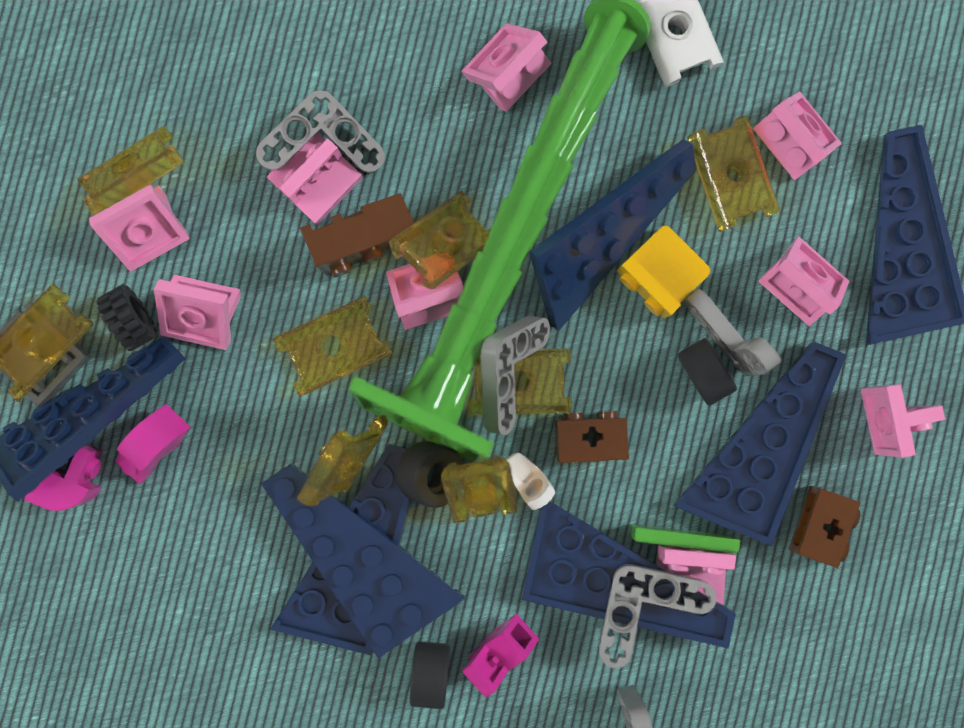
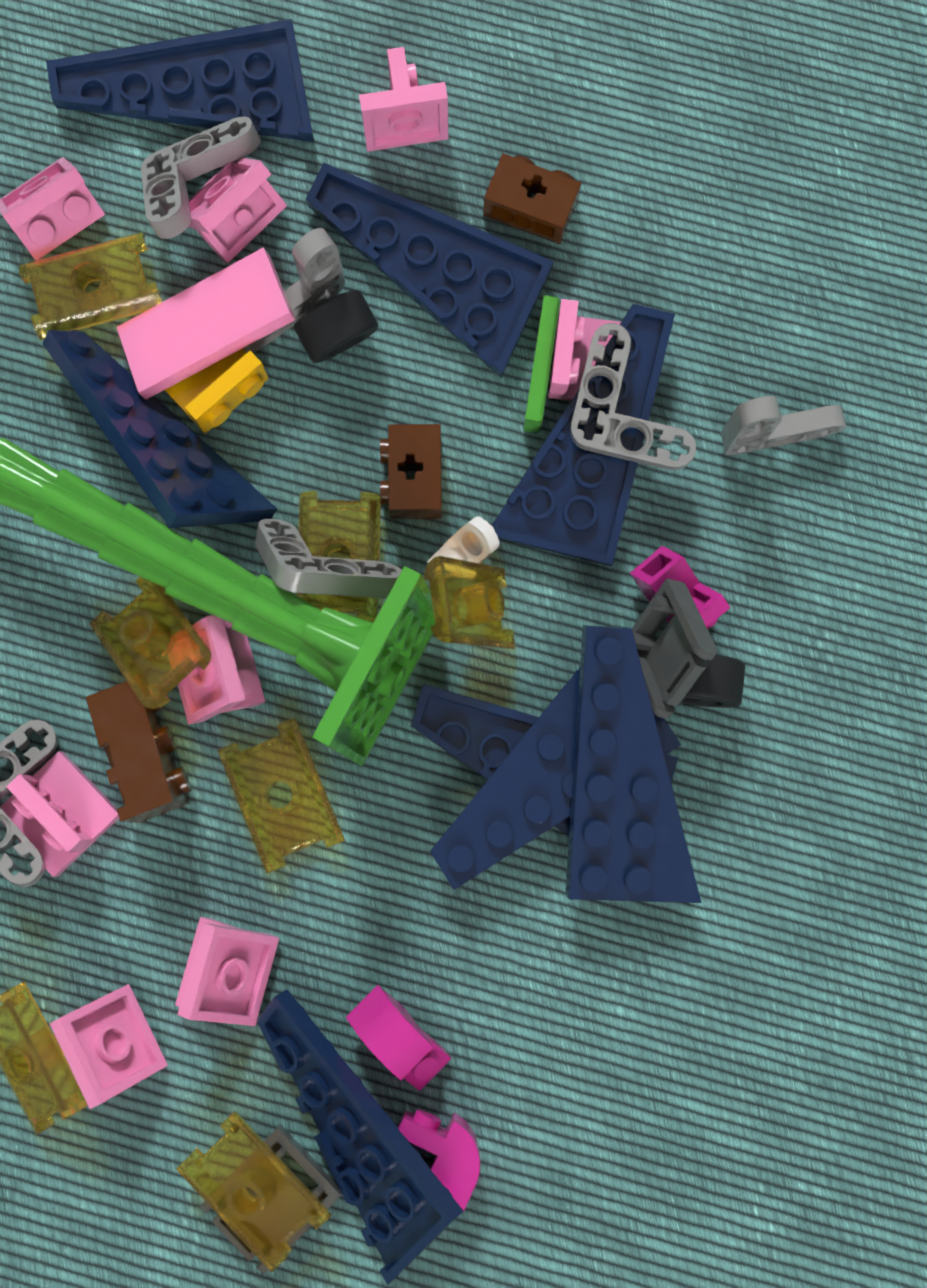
camera: 90 degrees left, 5 degrees down
(126, 317) = (227, 1066): black tyre -> none
(329, 614) = (623, 806): none -> dark blue wing
(341, 462) = (427, 779): clear yellow piece -> none
(414, 469) = (449, 674): black tyre -> none
(444, 657) = (679, 653): none -> dark grey container
(704, 267) = (205, 323): none -> bright pink tile
(857, 273) = (168, 169): none -> light grey beam

